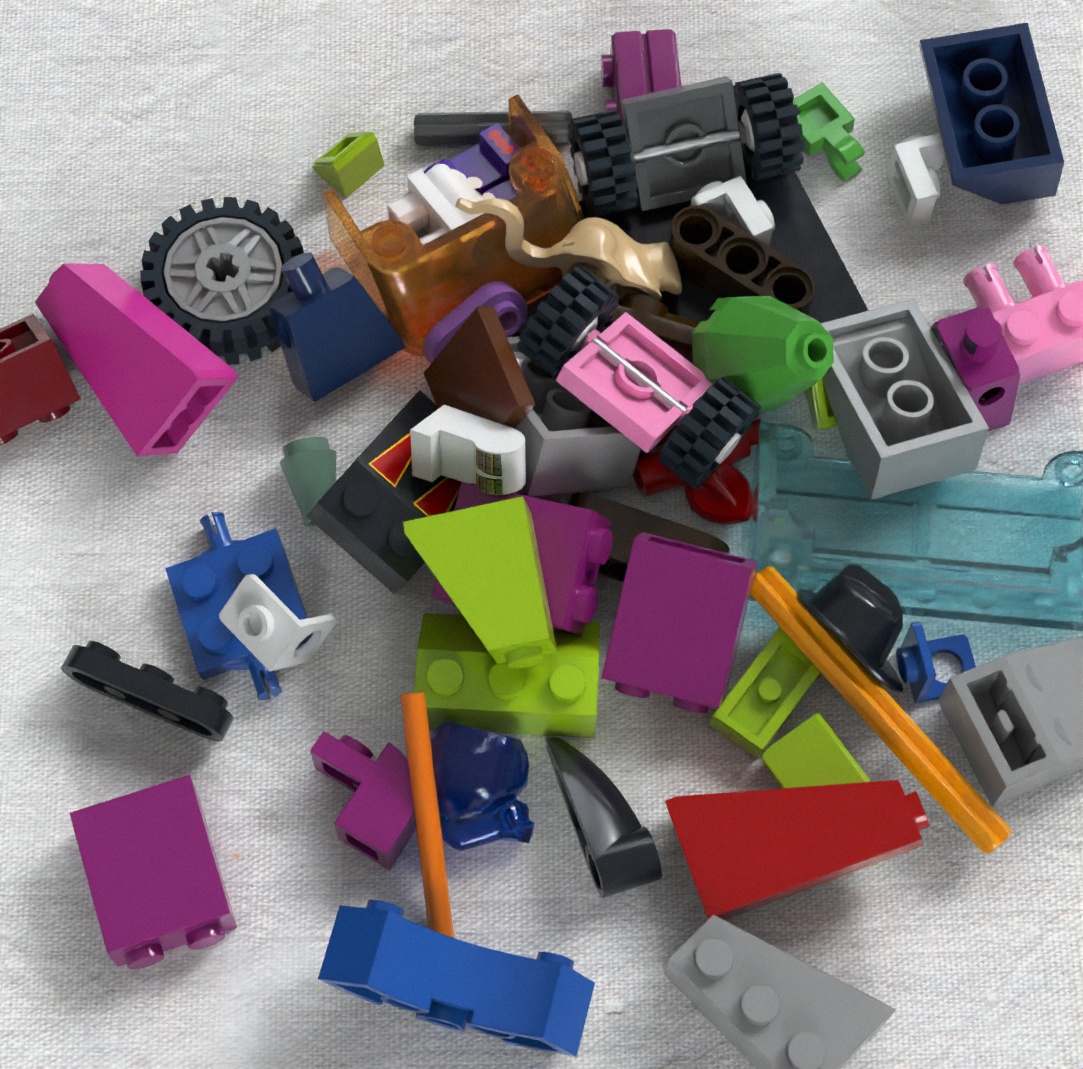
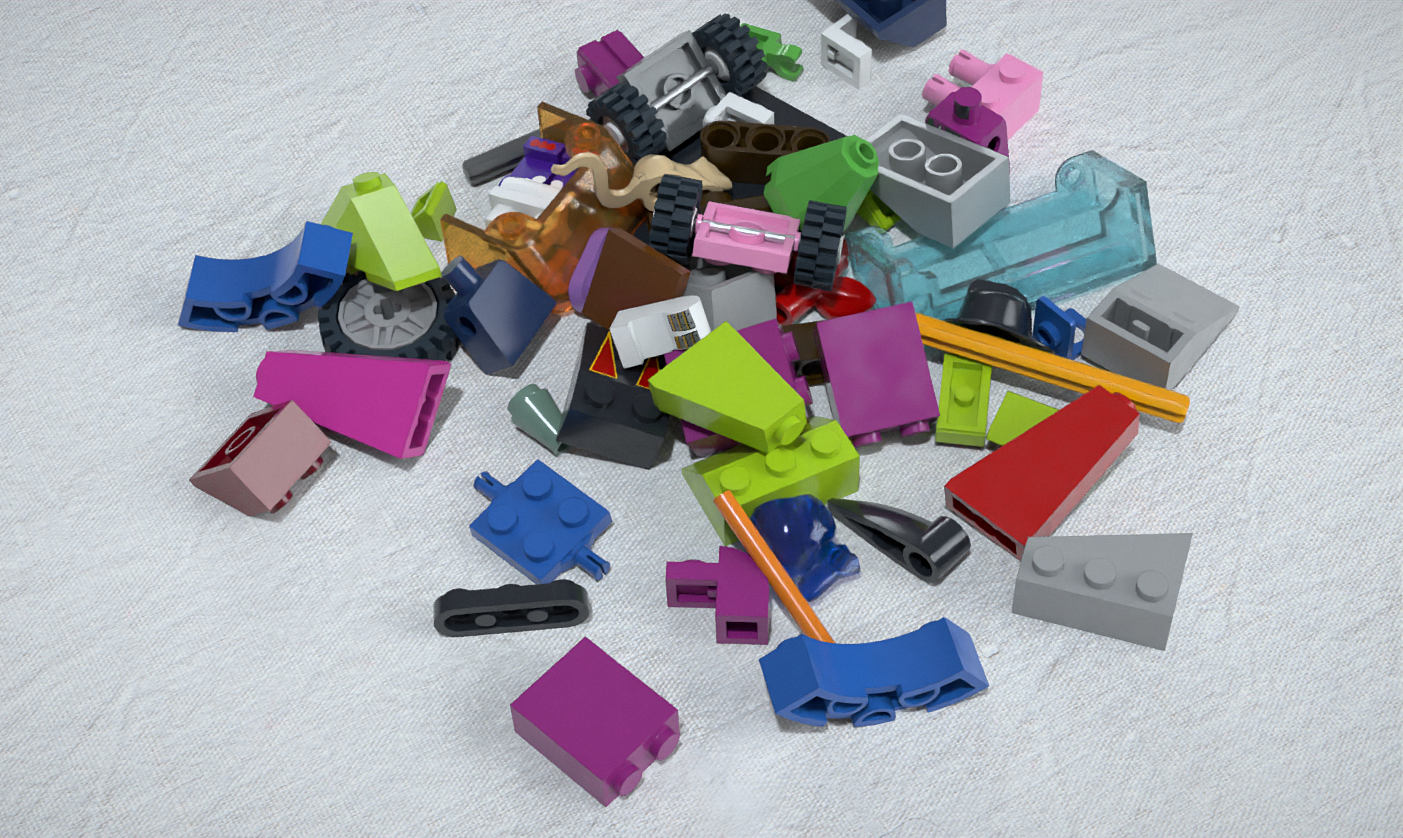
camera: 25 degrees left, 15 degrees down
(121, 174) = (267, 287): none -> blue brick
(258, 174) = (384, 233): none -> lime wedge
(270, 627) = (579, 514): white bracket -> none

